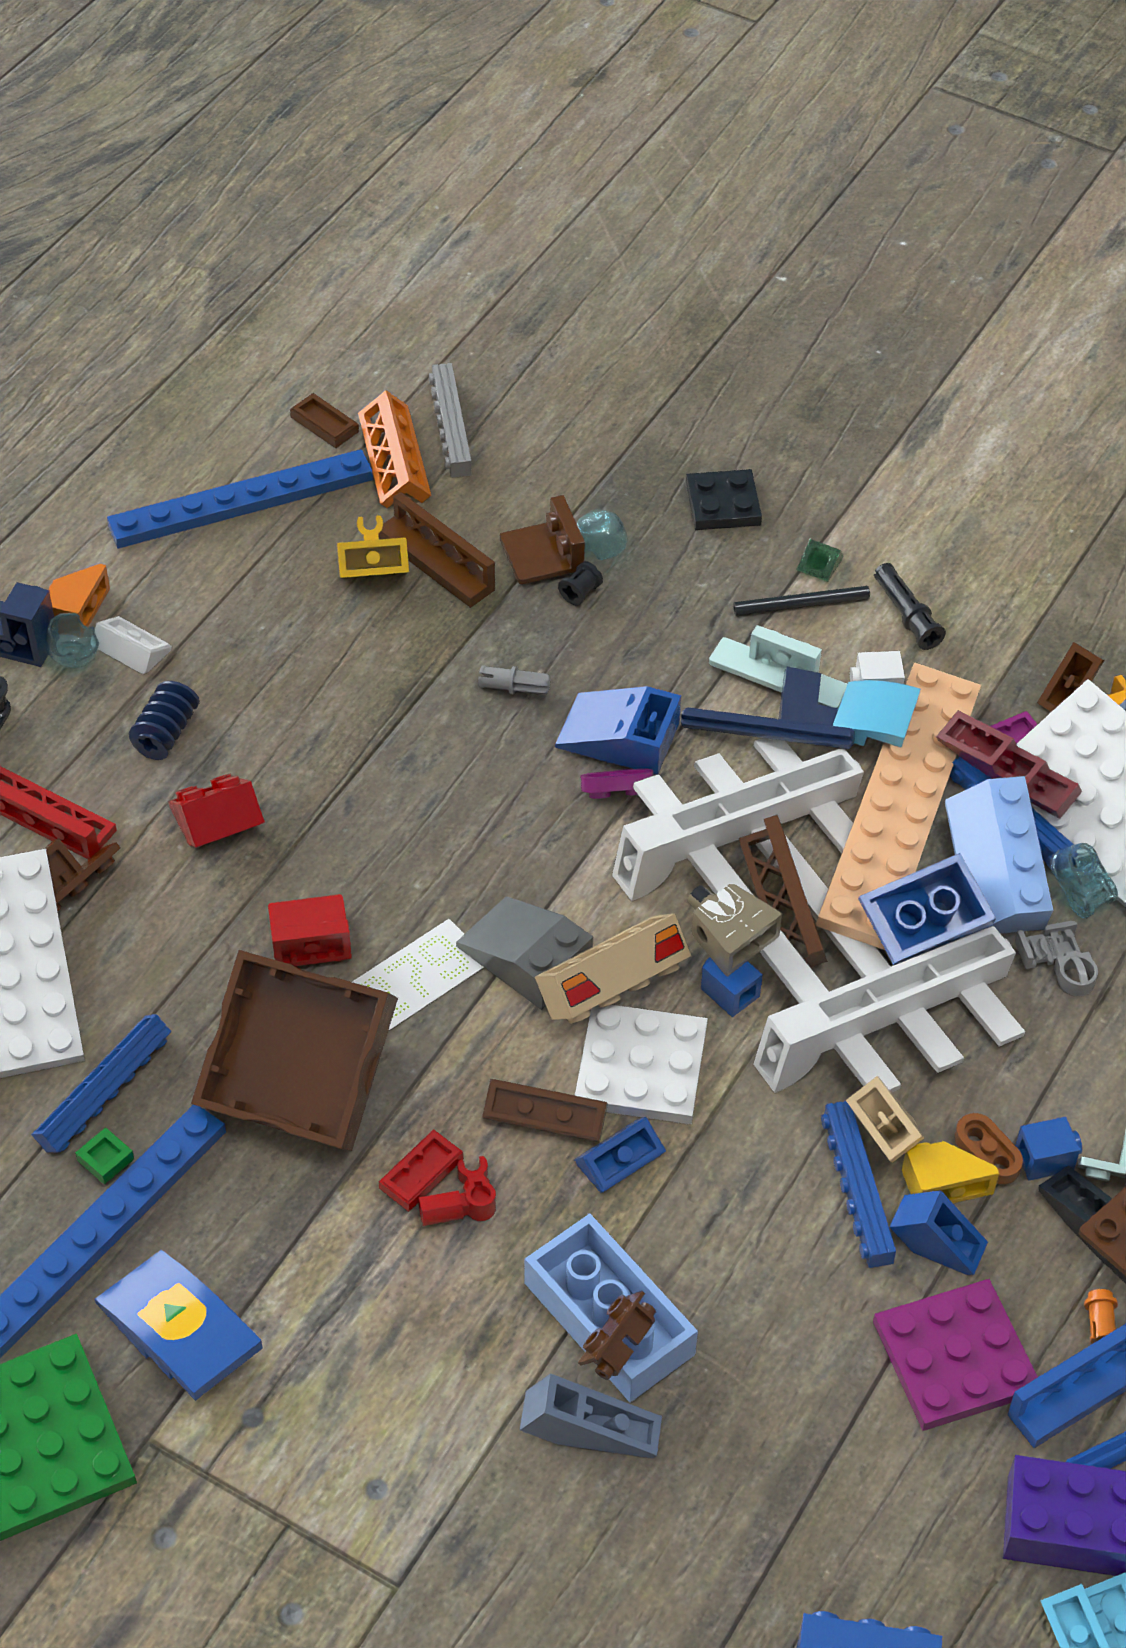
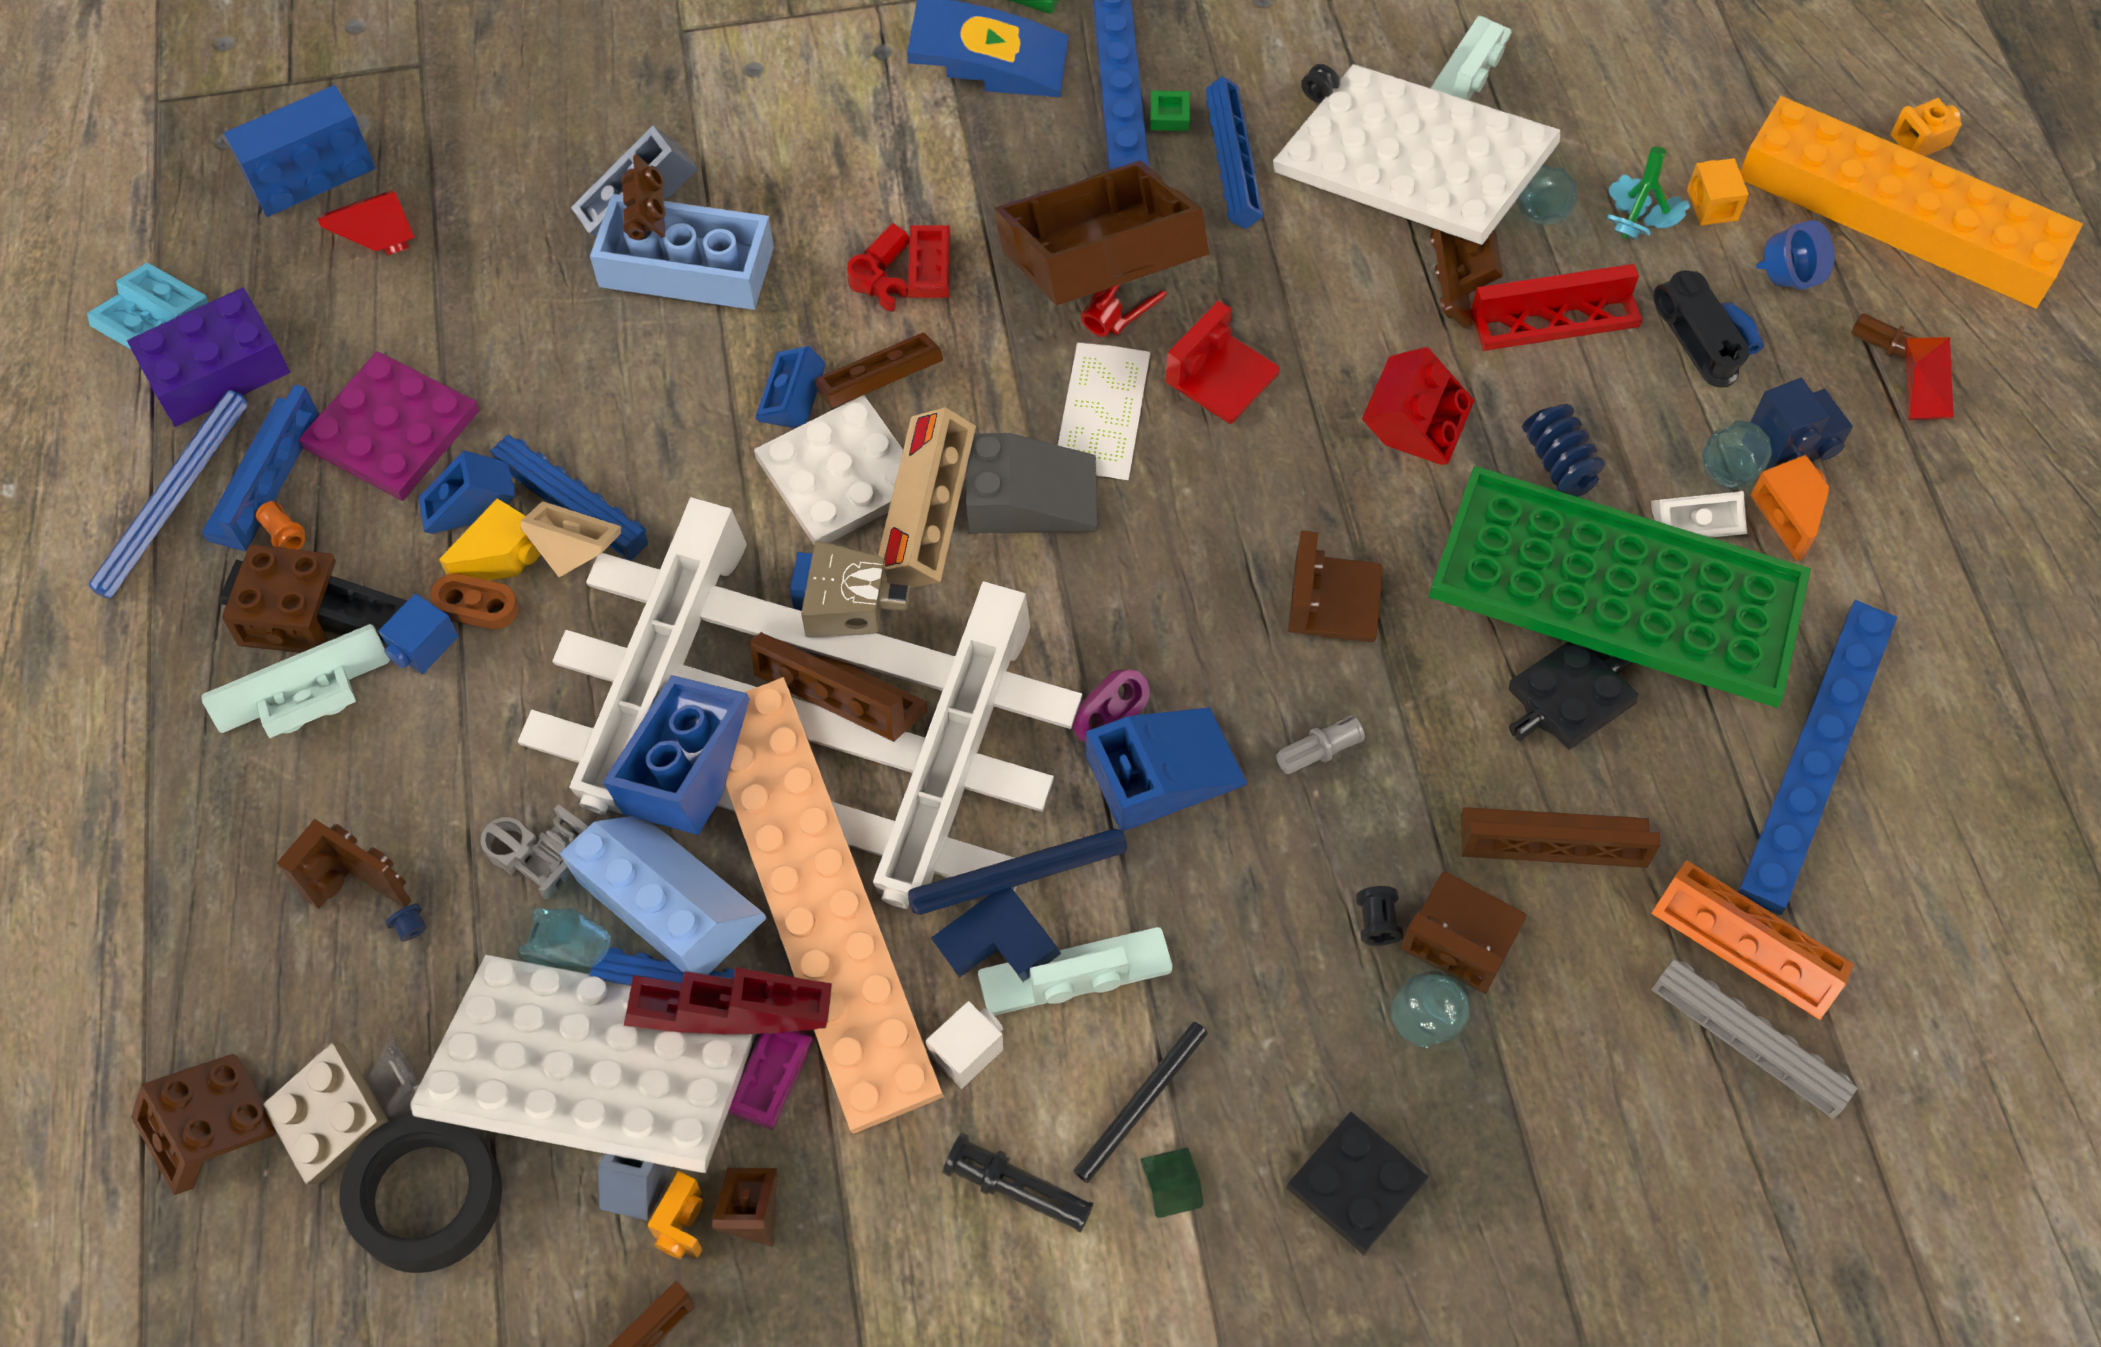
camera: 140 degrees right, 10 degrees up
(239, 631) = (1623, 585): none -> green plate
(324, 420) = (1873, 925): reddish brown tile -> none
(334, 609) = (1571, 694): none -> black plate
(373, 554) = (1600, 760): yellow brick -> none
(410, 748) = (1334, 594): none -> reddish brown bracket
(852, 1564) = (371, 223): none -> red slope
(877, 710) = (920, 969): medium azure slope -> none

